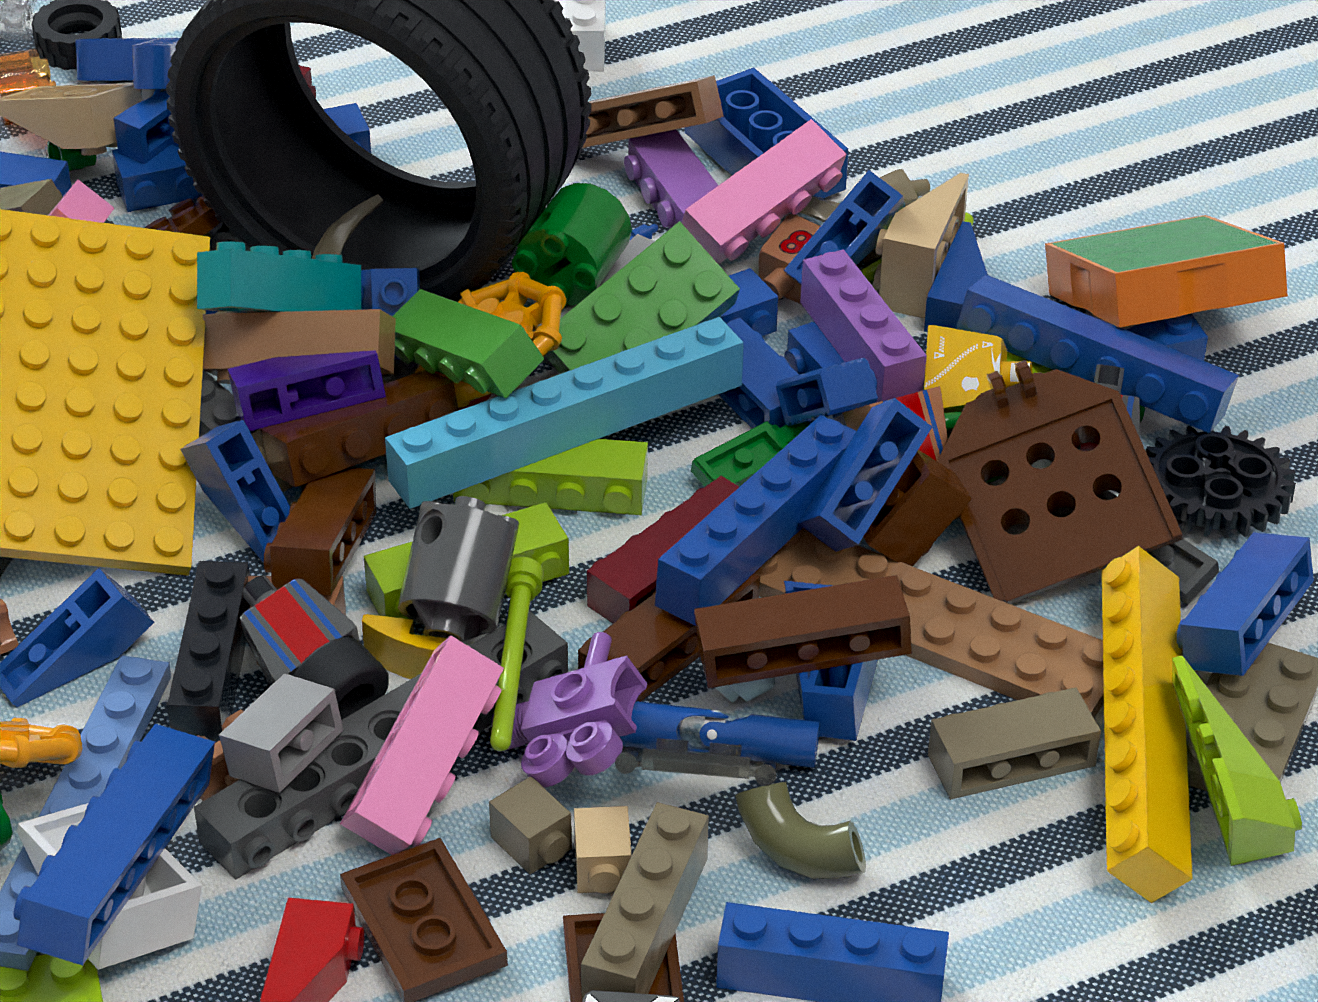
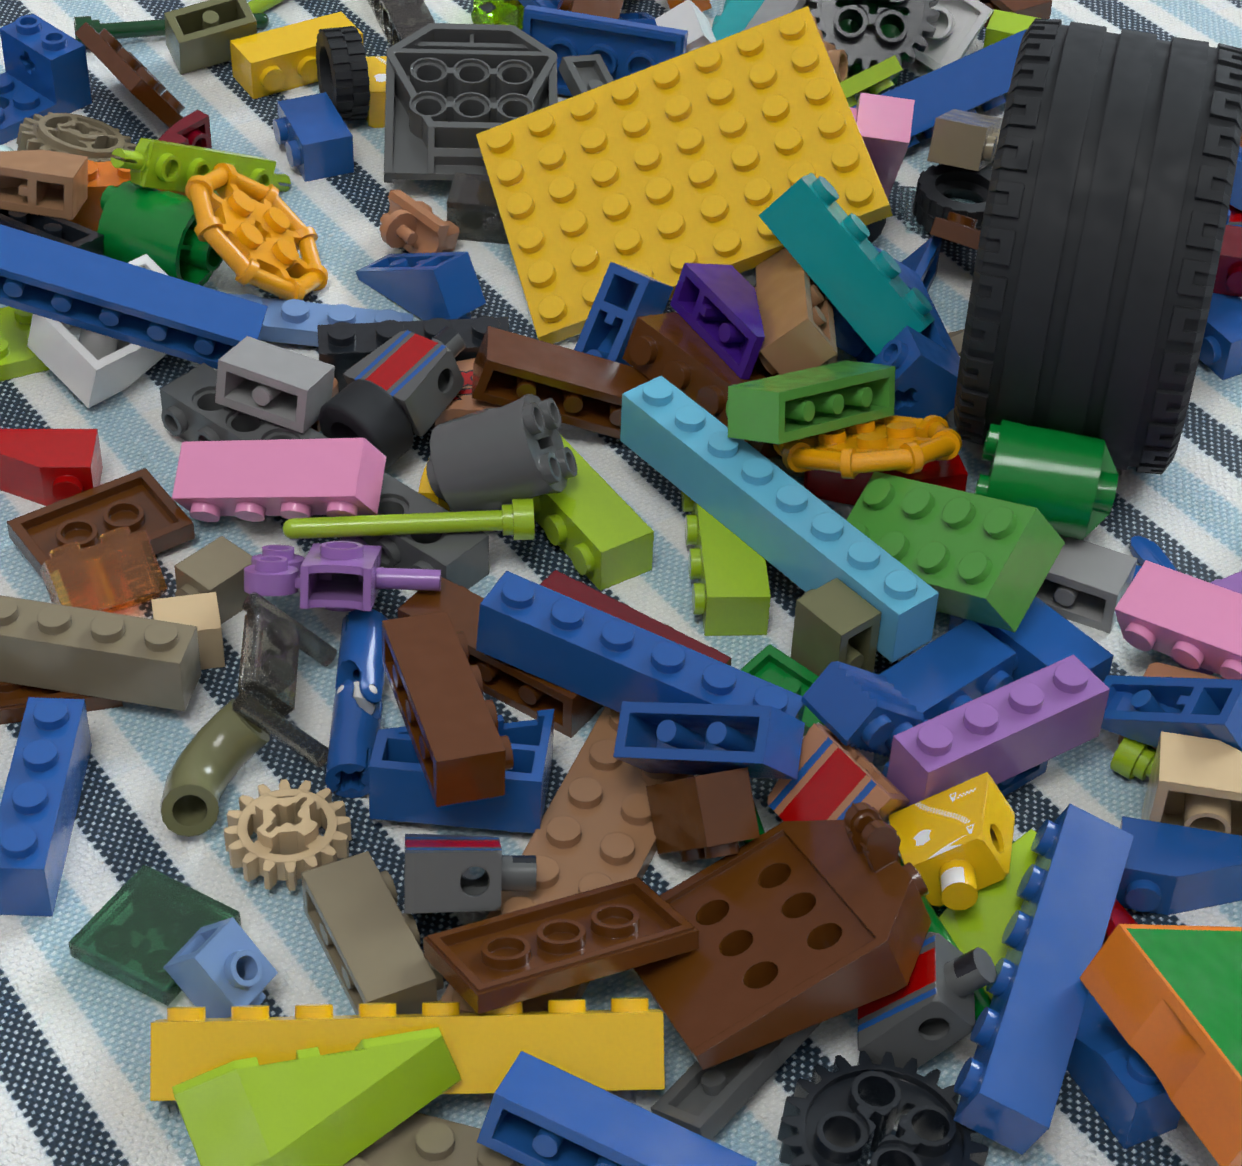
camera: 80 degrees right, 0 degrees up
(523, 905) = (107, 575): none -> clear orange brick
(713, 406) = (833, 627): none -> olive brick
(881, 788) = (286, 833): none -> tan gear
(956, 670) = (436, 868): none -> dark grey torso
(991, 885) = (145, 929): none -> clear green tile
(1053, 827) = (221, 969): none -> medium blue brick
(1055, 605) = (559, 944): none -> reddish brown tile

